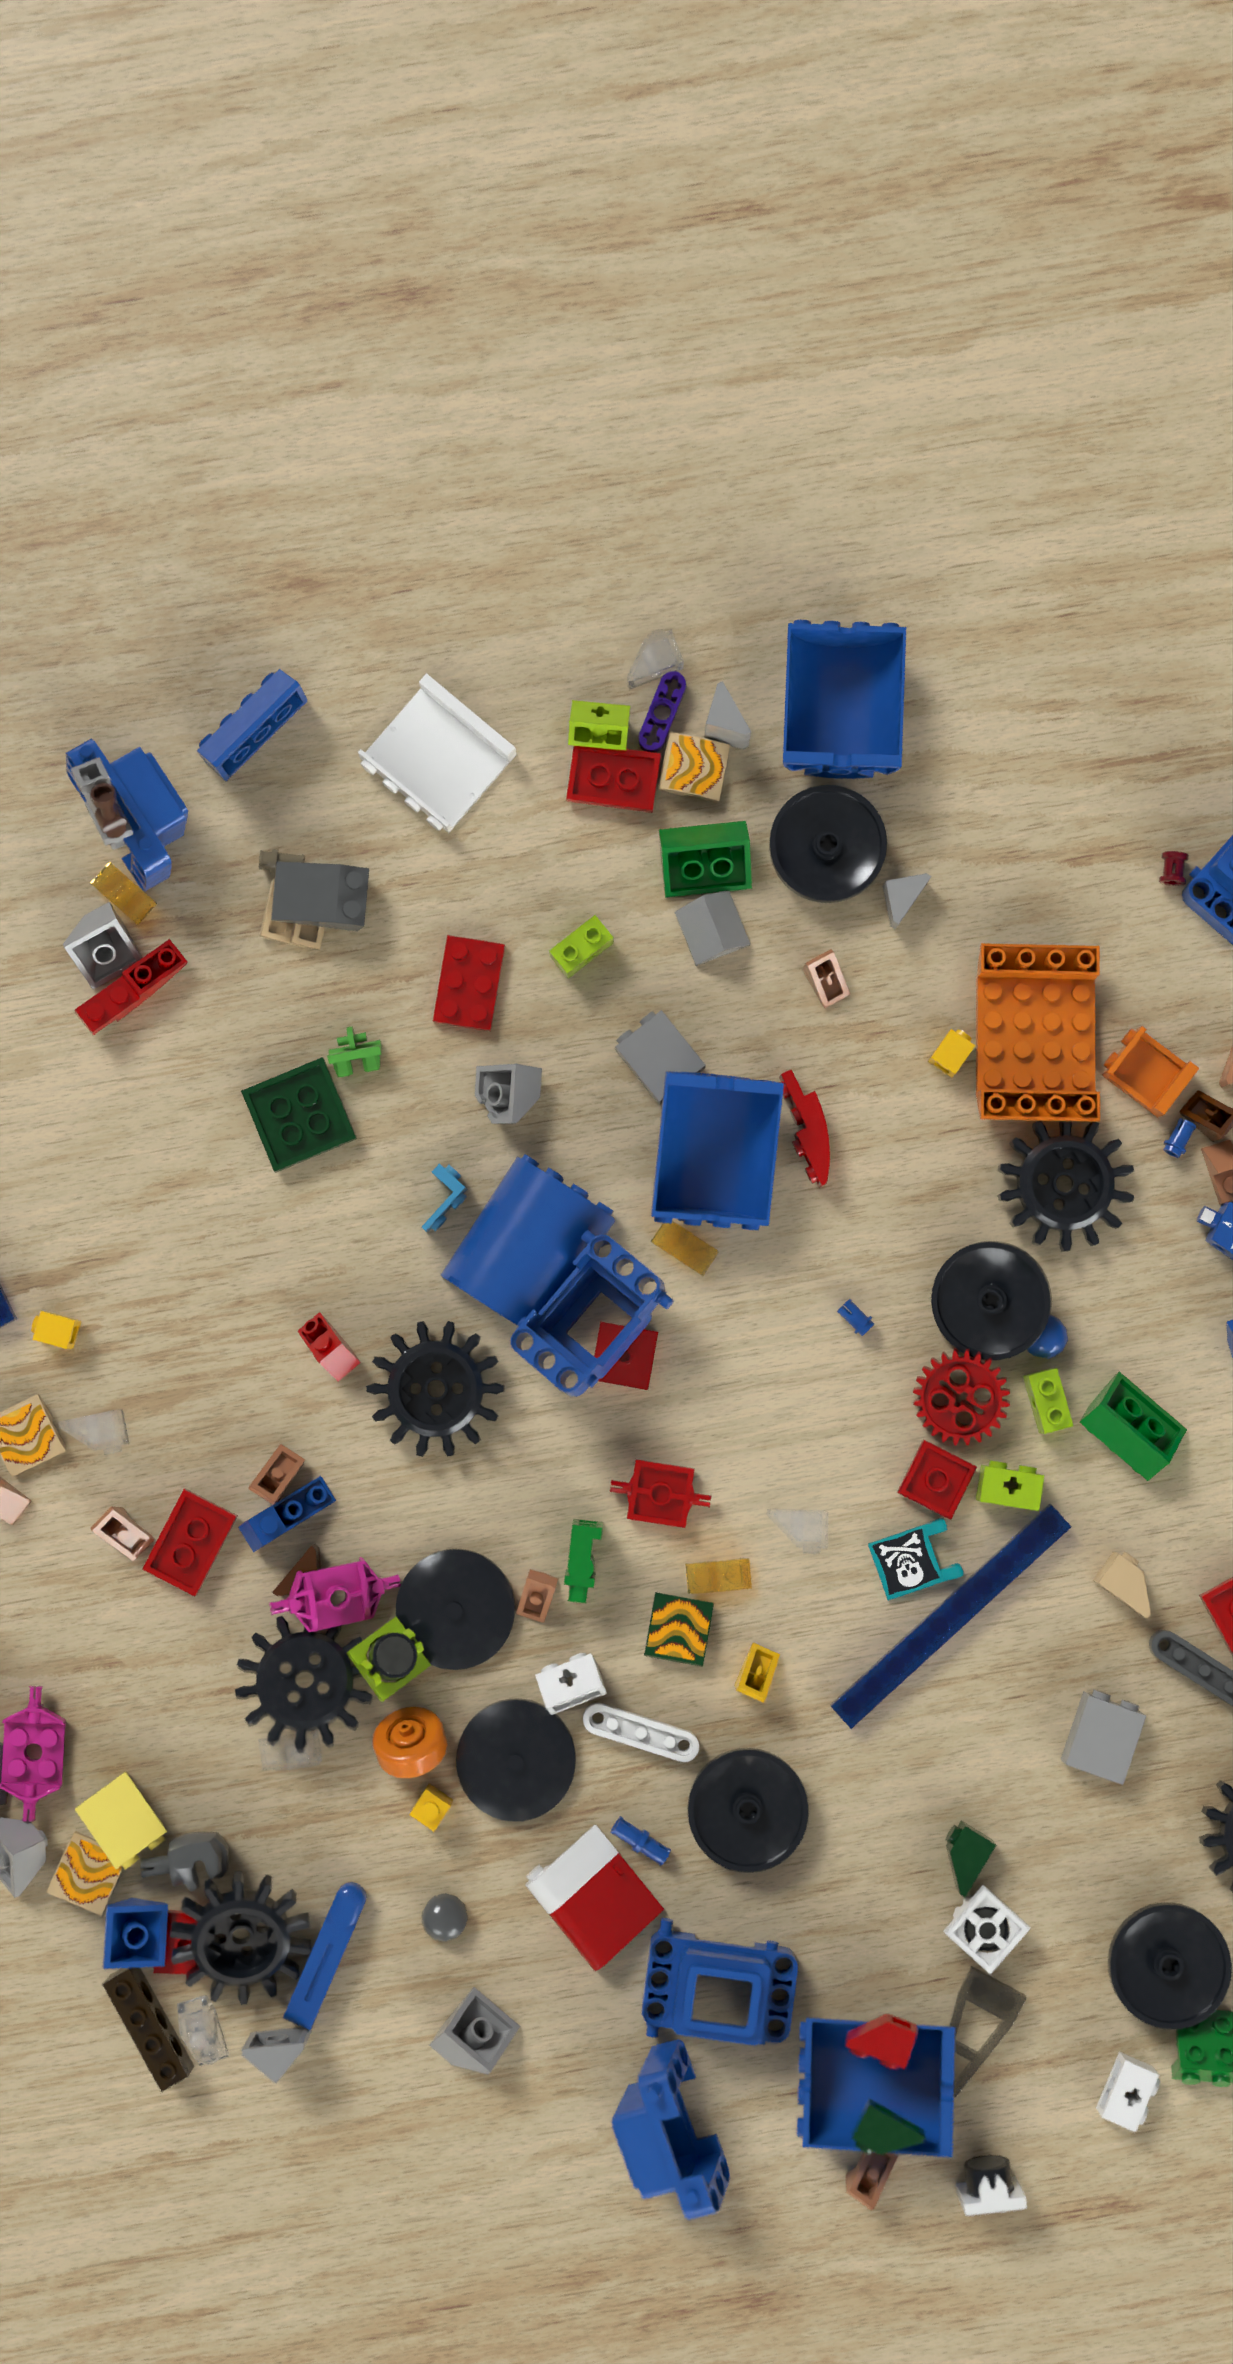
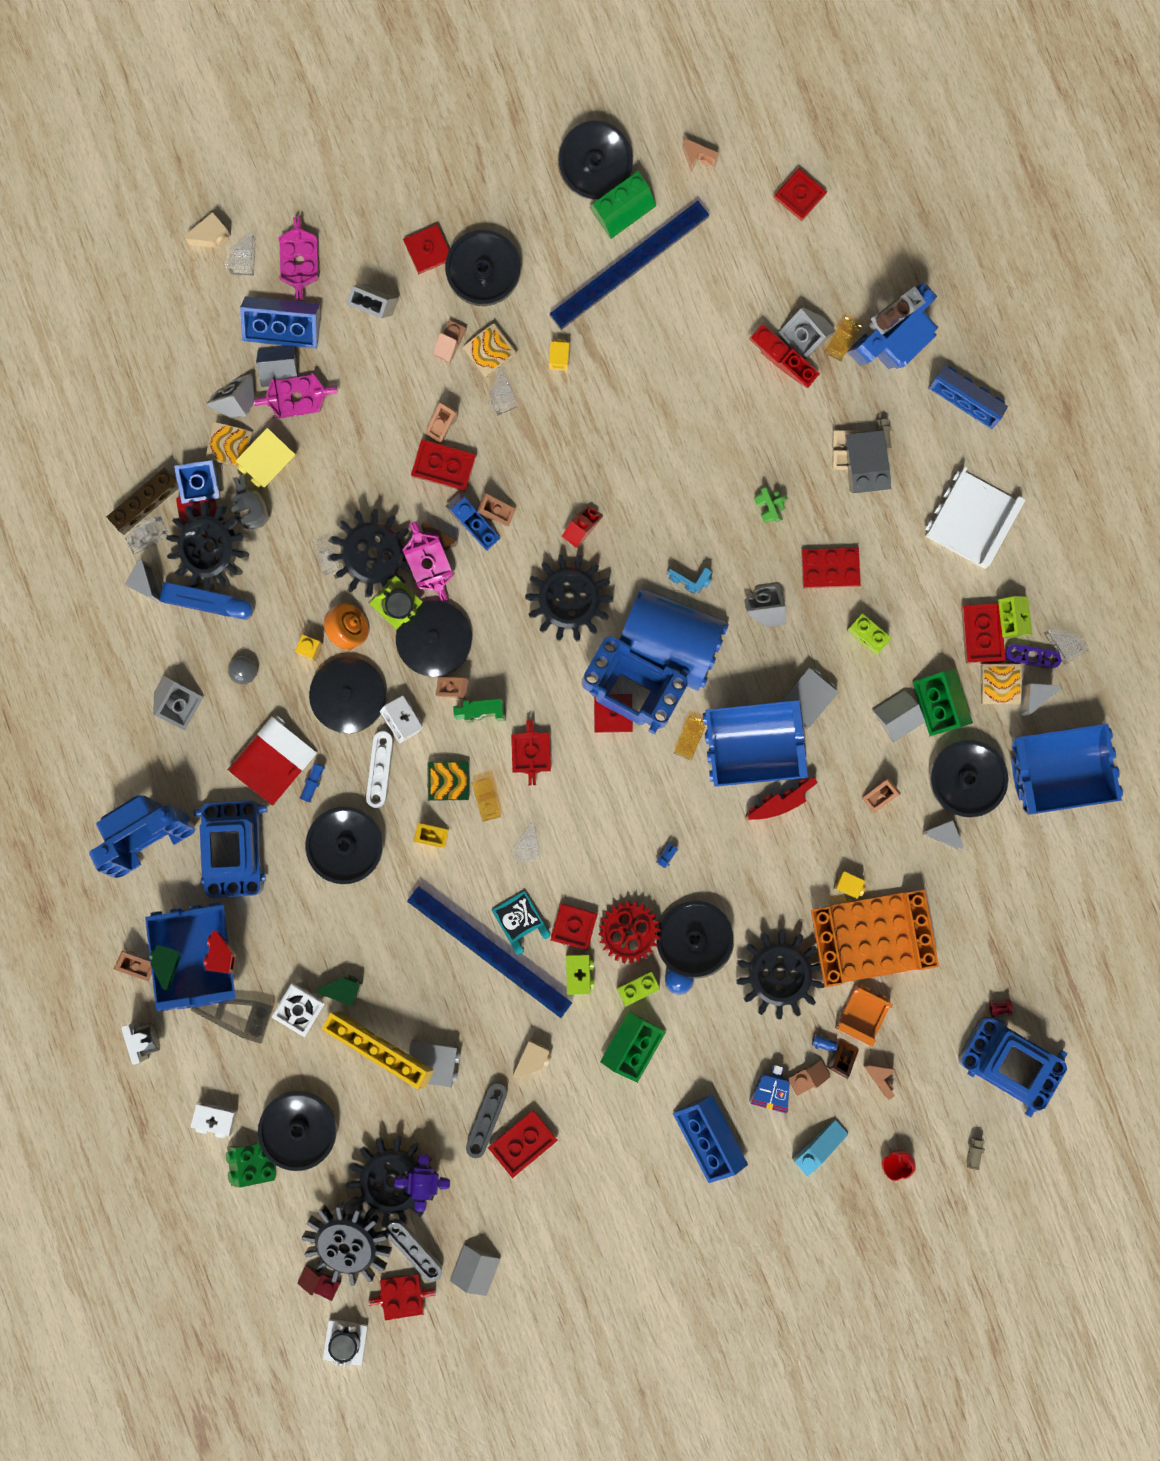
camera: 80 degrees right, 0 degrees up
(299, 1114) = (724, 478): dark green plate -> none
(1071, 1818) = (378, 1050): none -> yellow brick

